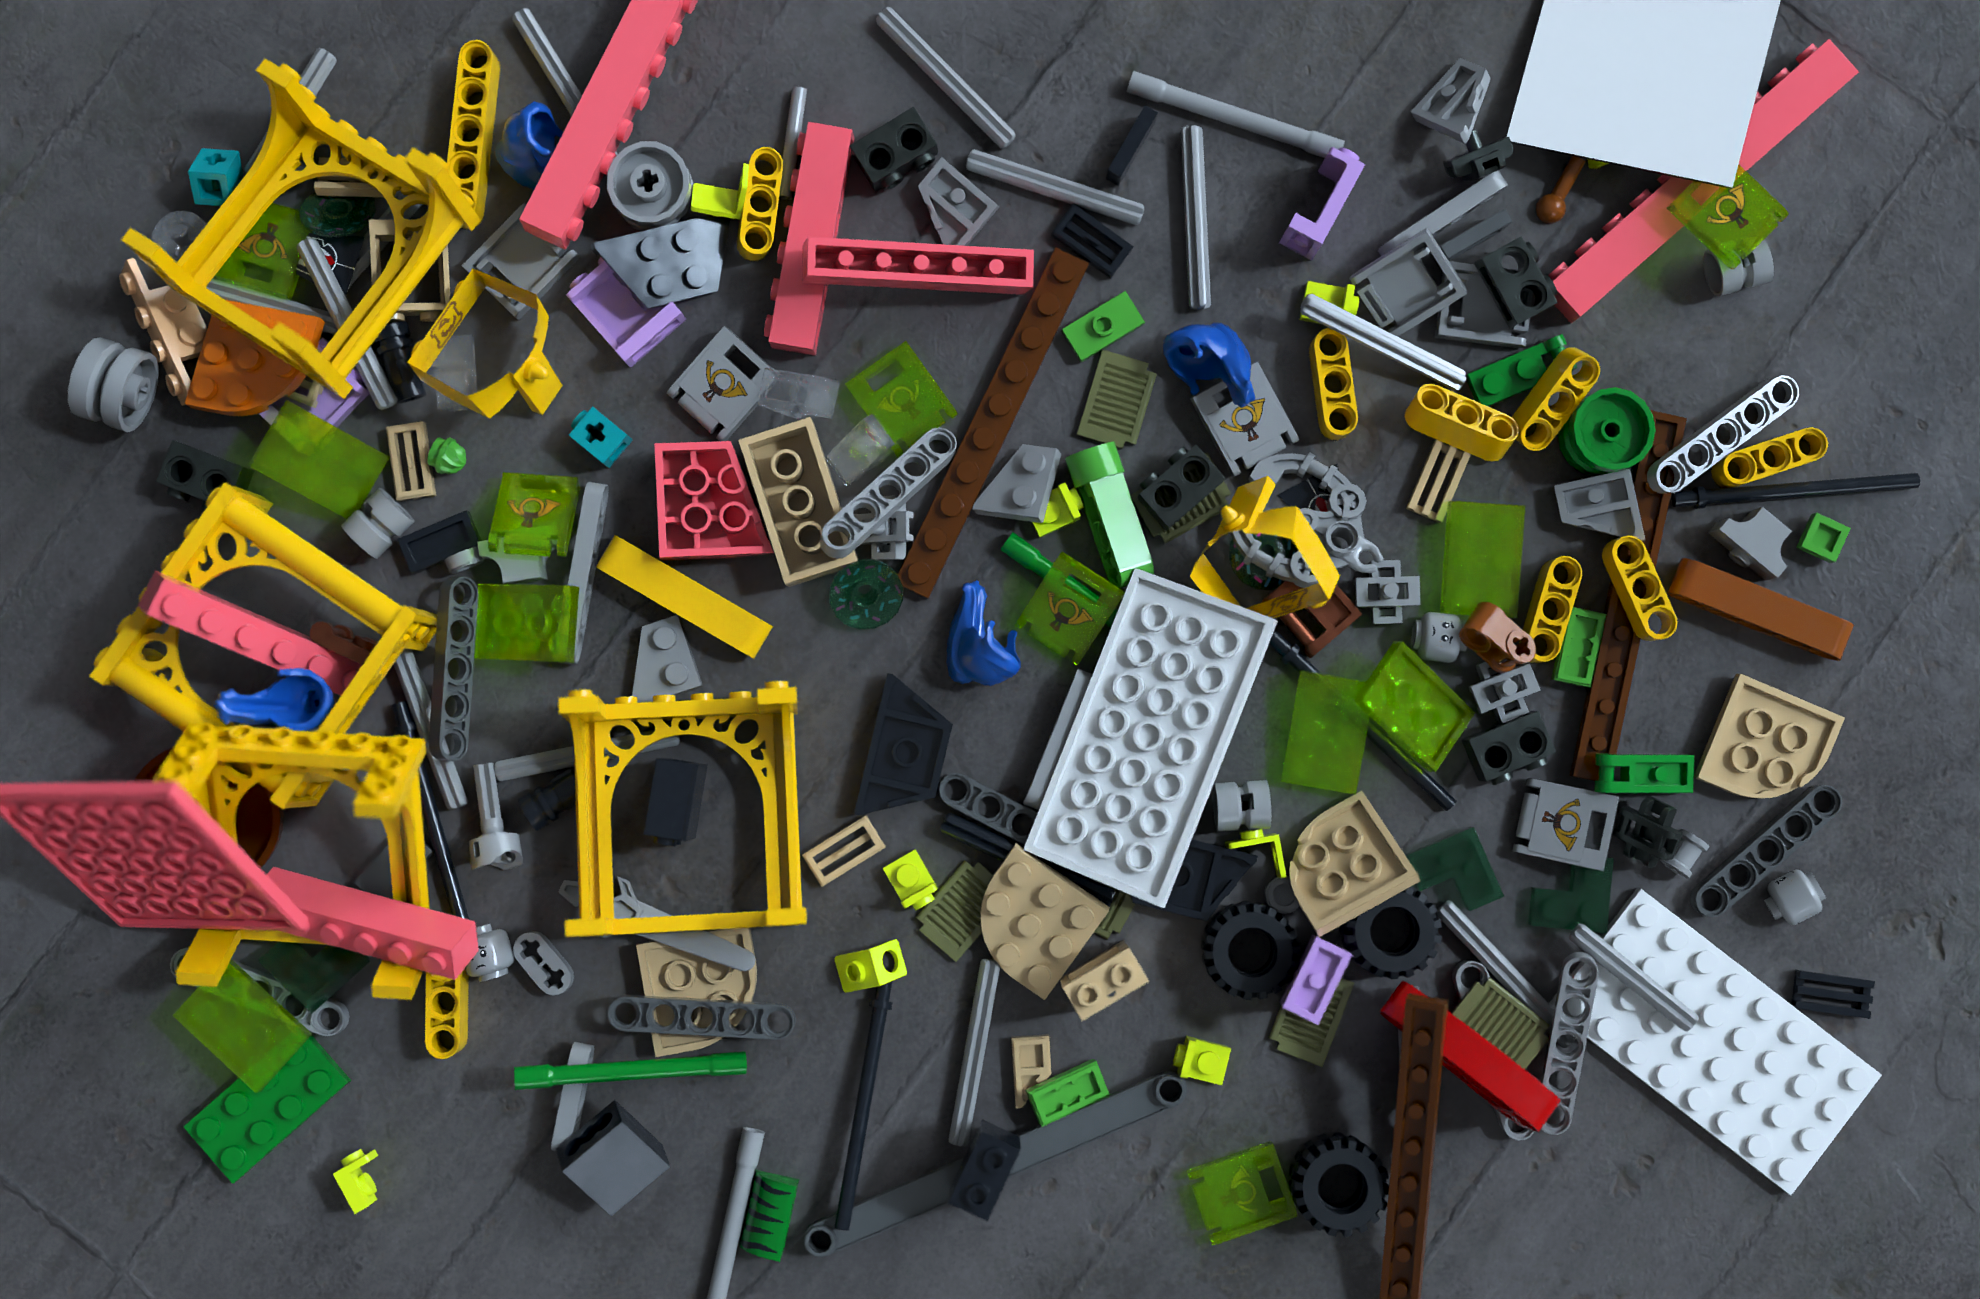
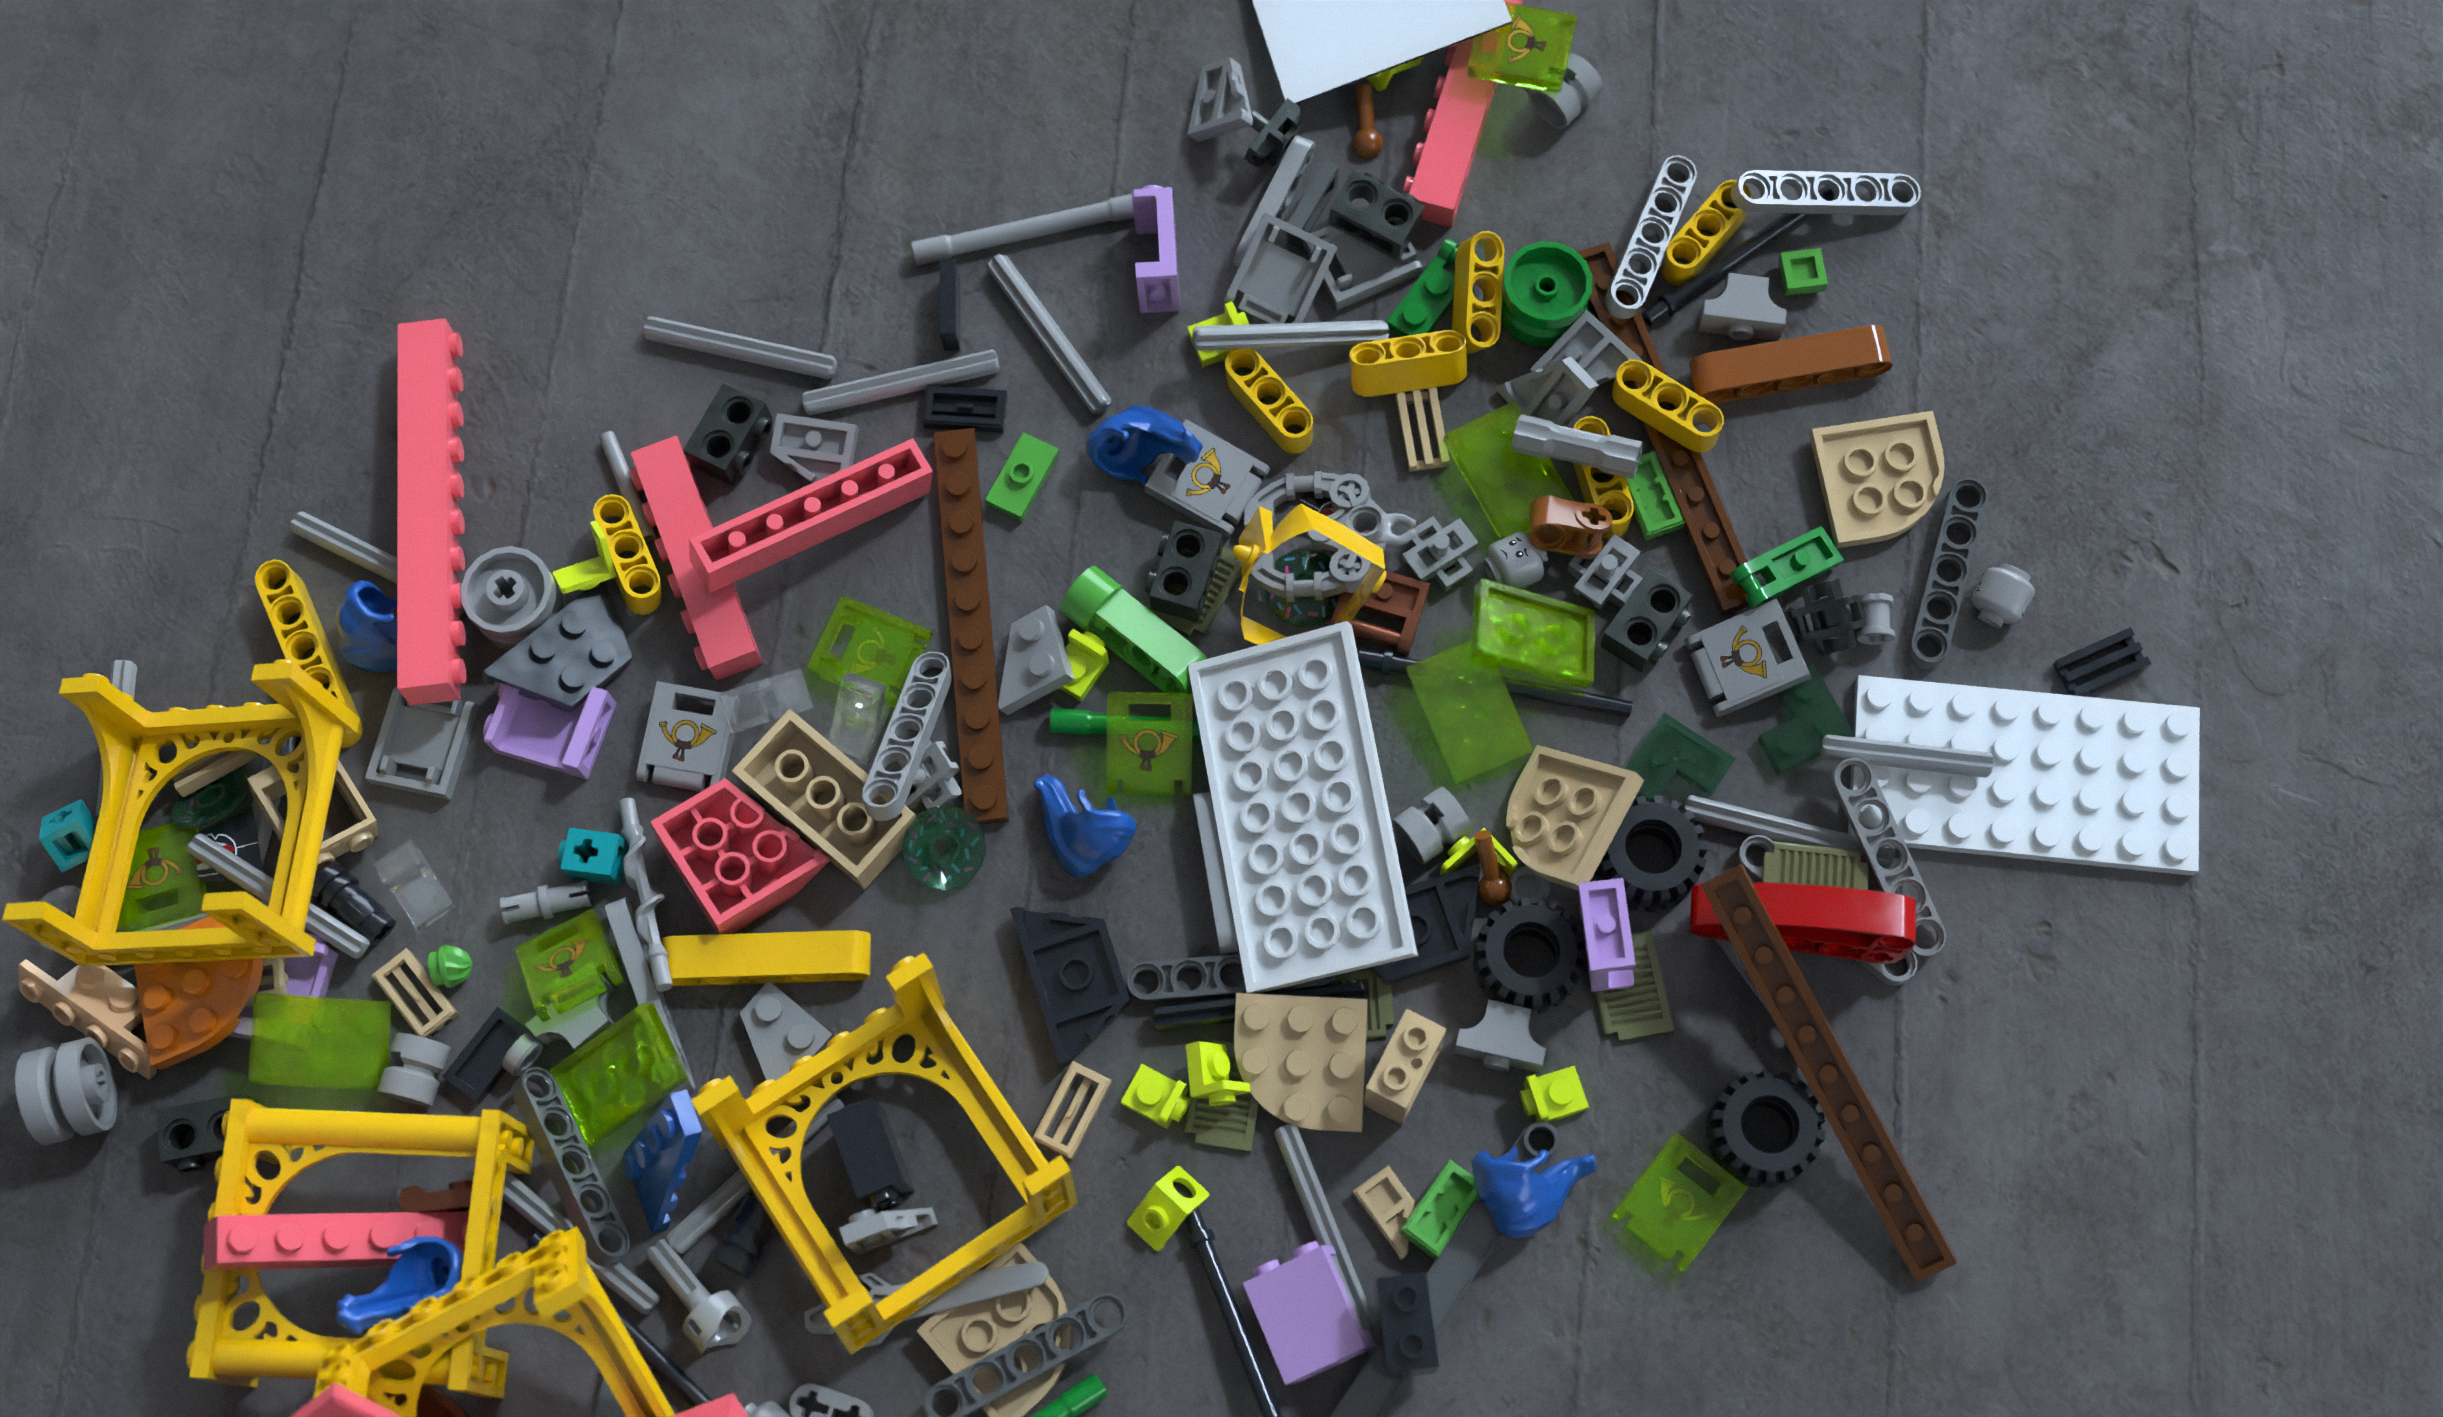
camera: 25 degrees left, 15 degrees down
(520, 712) = (659, 1157): none -> blue wing
(533, 379) = (490, 832): yellow piece -> none
(545, 449) = (545, 902): none -> light grey pin
(625, 493) = (649, 895): none -> light grey piece
(647, 856) = (874, 1230): none -> light grey wing
(921, 1109) = (1306, 1313): none -> lavender panel
(958, 893) = (1210, 1074): none -> neon yellow bracket
(1117, 400) = (1076, 532): olive window -> none
(1130, 1129) = (1520, 1198): none -> blue piece
(1190, 997) = (1502, 1039): none -> light grey brick
(1260, 878) = (1494, 886): none -> dark orange bar
(1554, 519) = (1551, 392): none -> light grey wing
(1564, 600) = (1608, 453): none -> light grey axle
(1870, 481) = (1811, 202): none -> light grey beam

